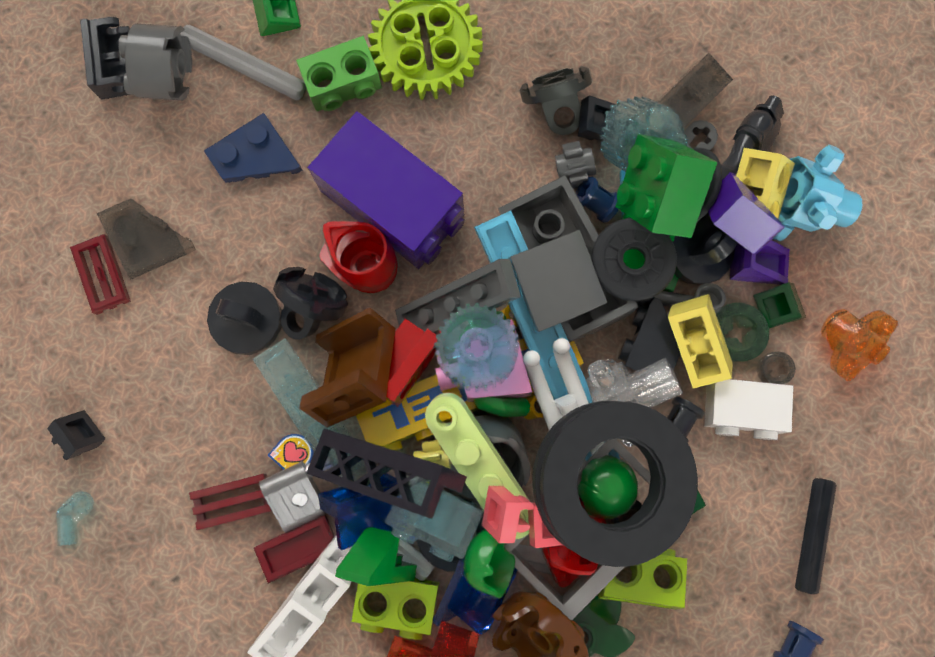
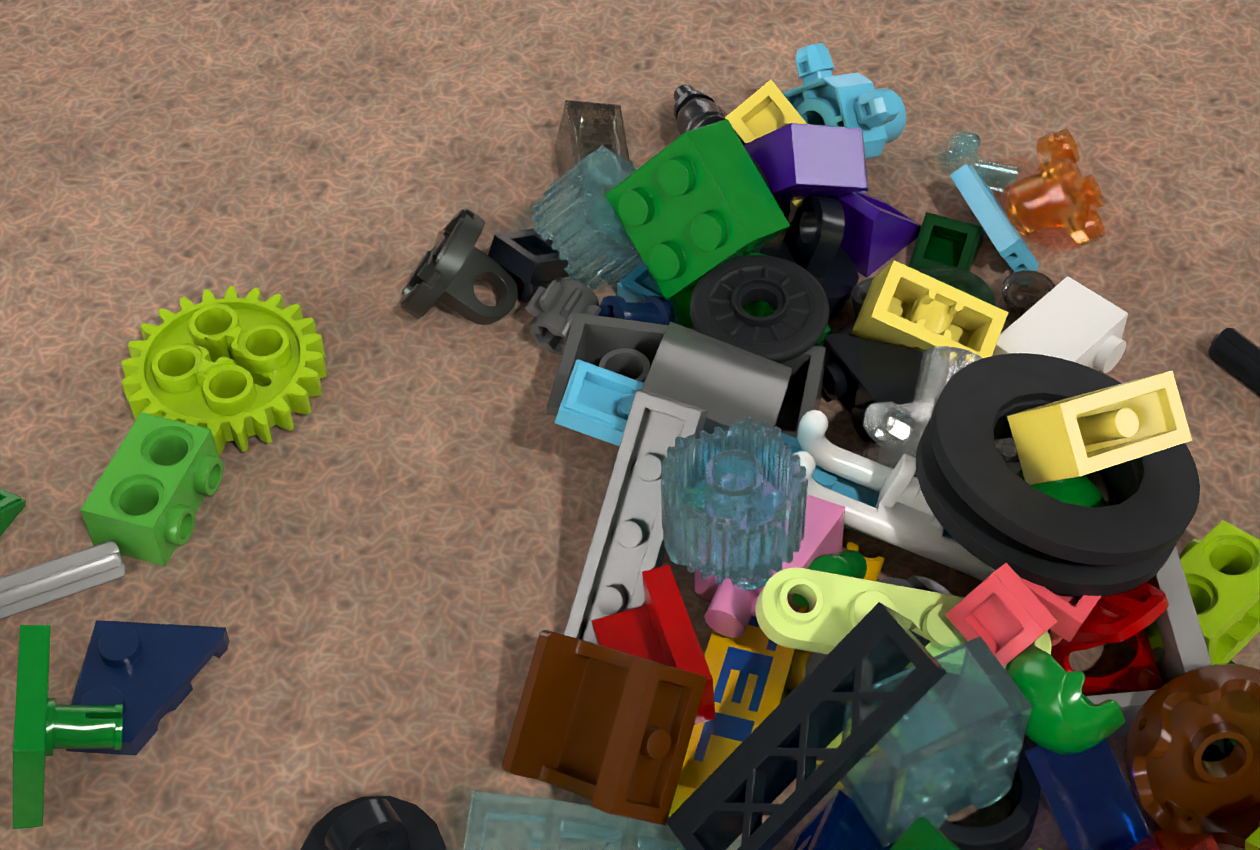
camera: 55 degrees left, 30 degrees down
(189, 142) = (47, 726): none -> green tile
(313, 297) = (442, 736): black tile -> none
(359, 258) = (448, 637): red helmet -> none
(389, 189) = (391, 523): dark purple brick -> none
(640, 494) = (1099, 429): none -> light yellow slope
(809, 323) = (994, 219): none -> medium azure tile
(851, 278) = (965, 150): none -> clear light blue arm

